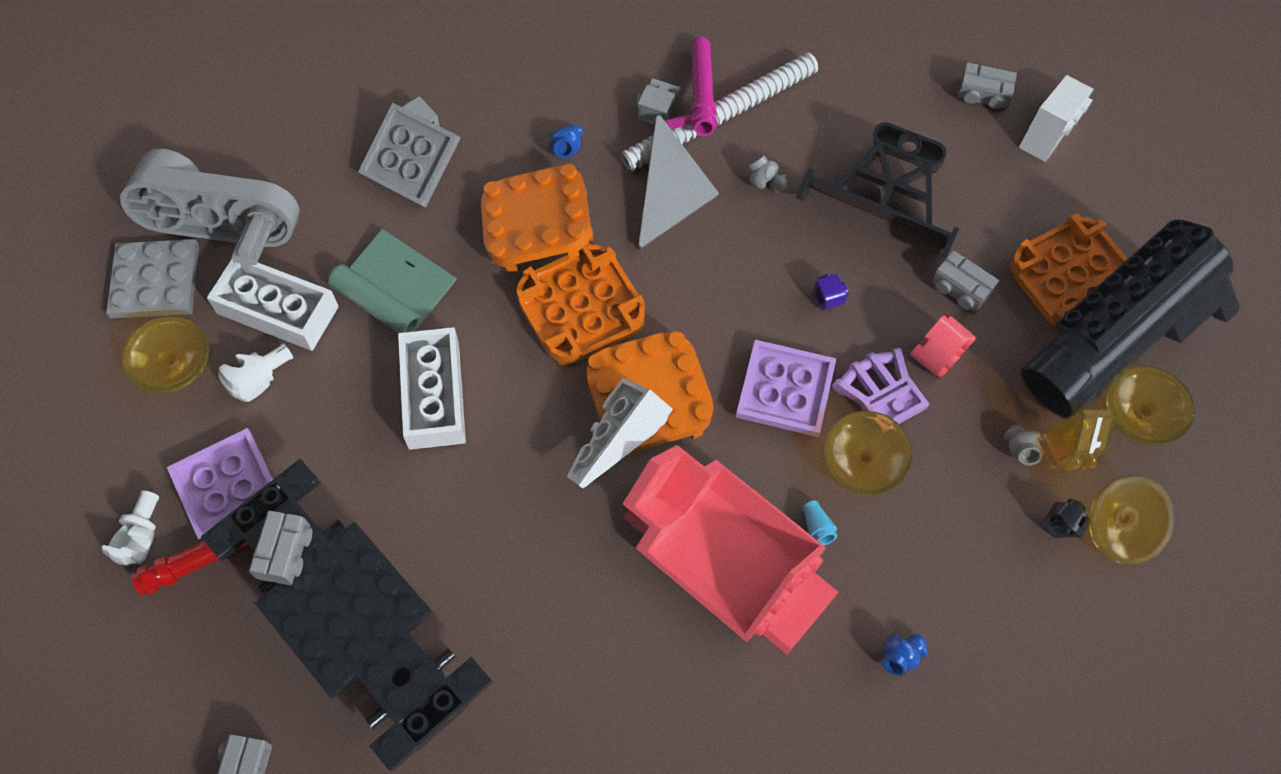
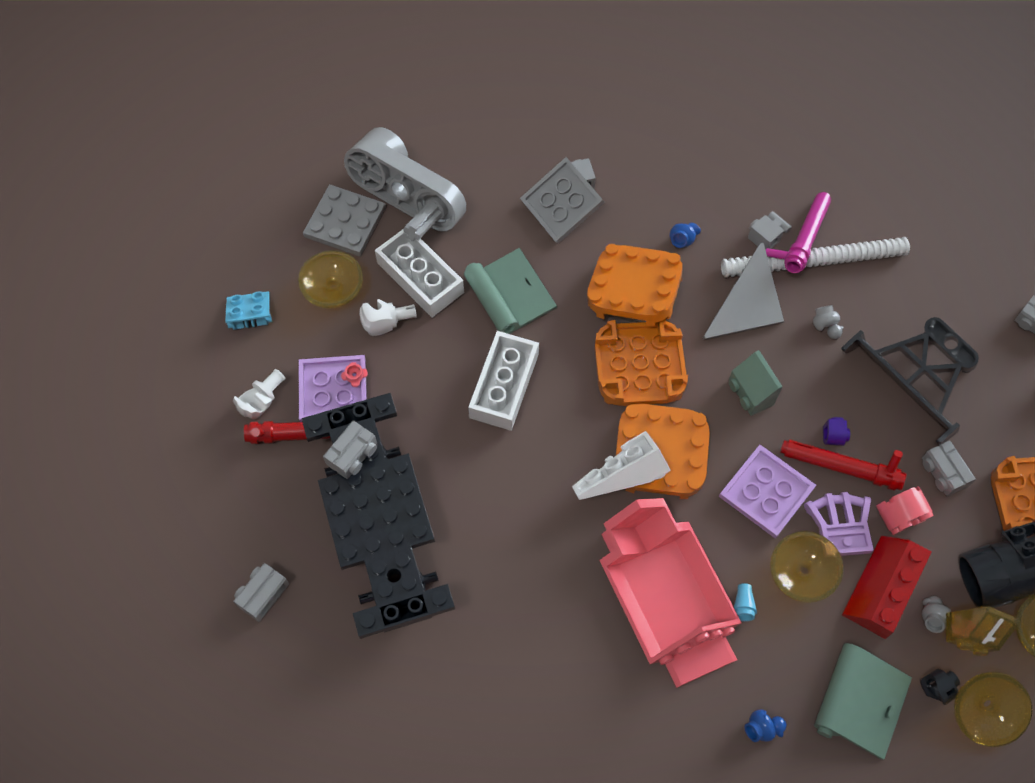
camera: 25 degrees right, 0 degrees up
(73, 431) = (248, 307): none -> medium azure hinge
(240, 449) = (354, 368): none -> coral plate
(720, 274) = (755, 384): none -> sand green slope
(896, 318) = (878, 473): none -> red cylinder
(960, 435) = (886, 585): none -> red slope
(993, 574) = (863, 700): none -> sand green door

